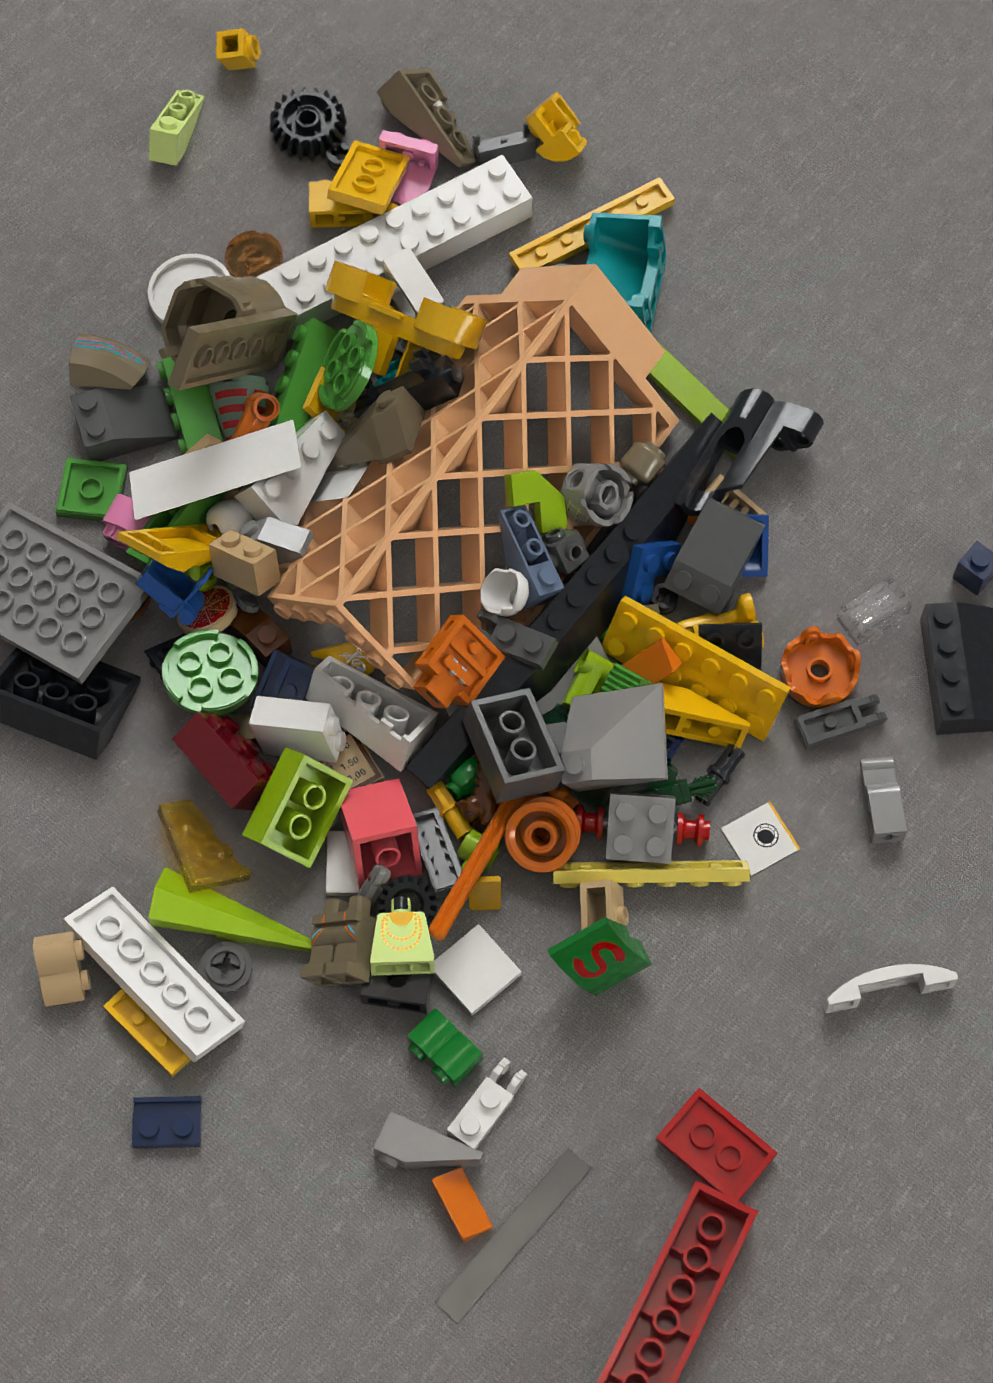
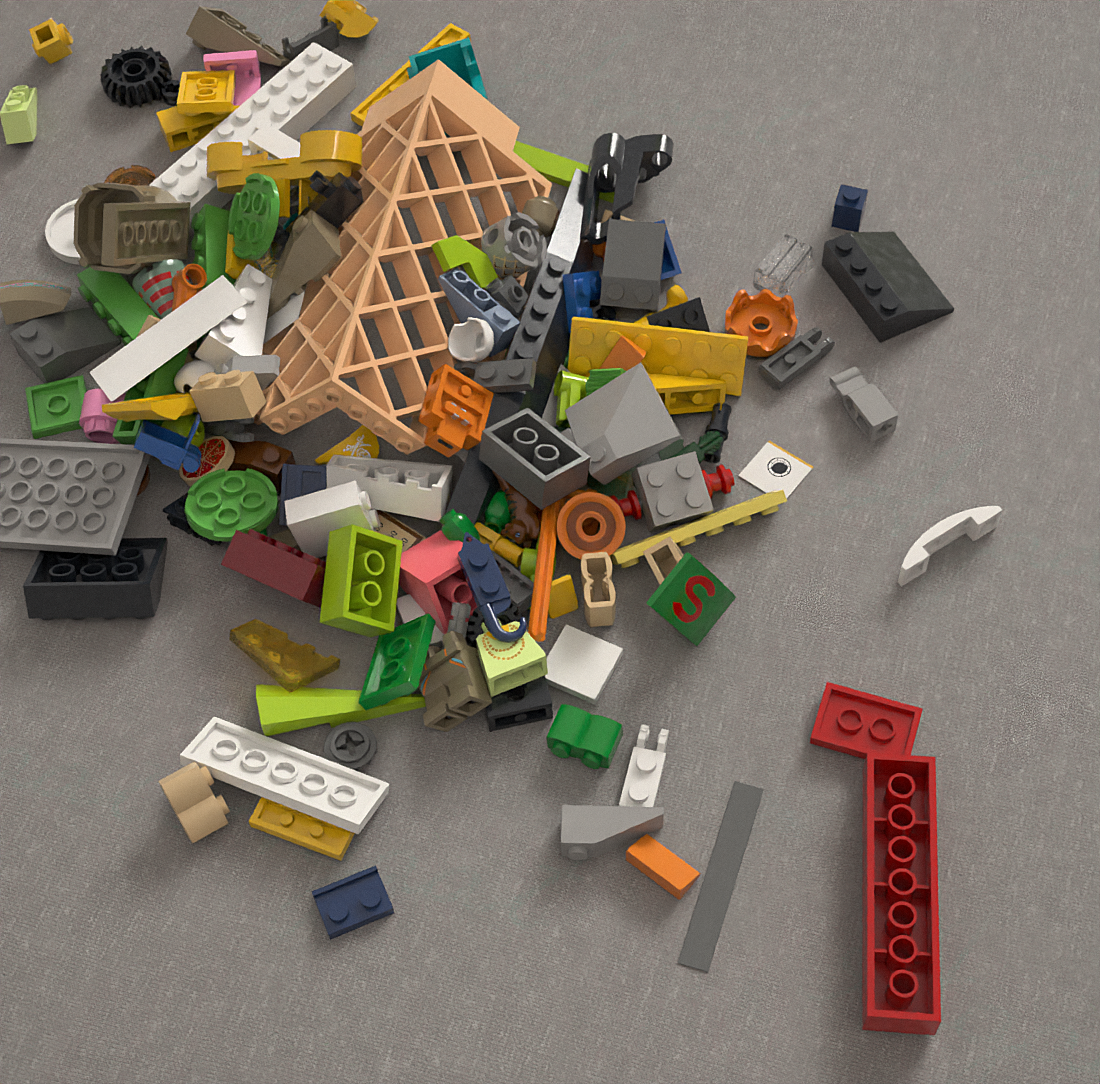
camera: 20 degrees left, 10 degrees down
(299, 904) = (397, 662): none -> green plate
(408, 868) = (487, 587): none -> dark blue plate
(414, 788) = (456, 524): none -> green plant
(524, 899) = (598, 589): none -> tan brick

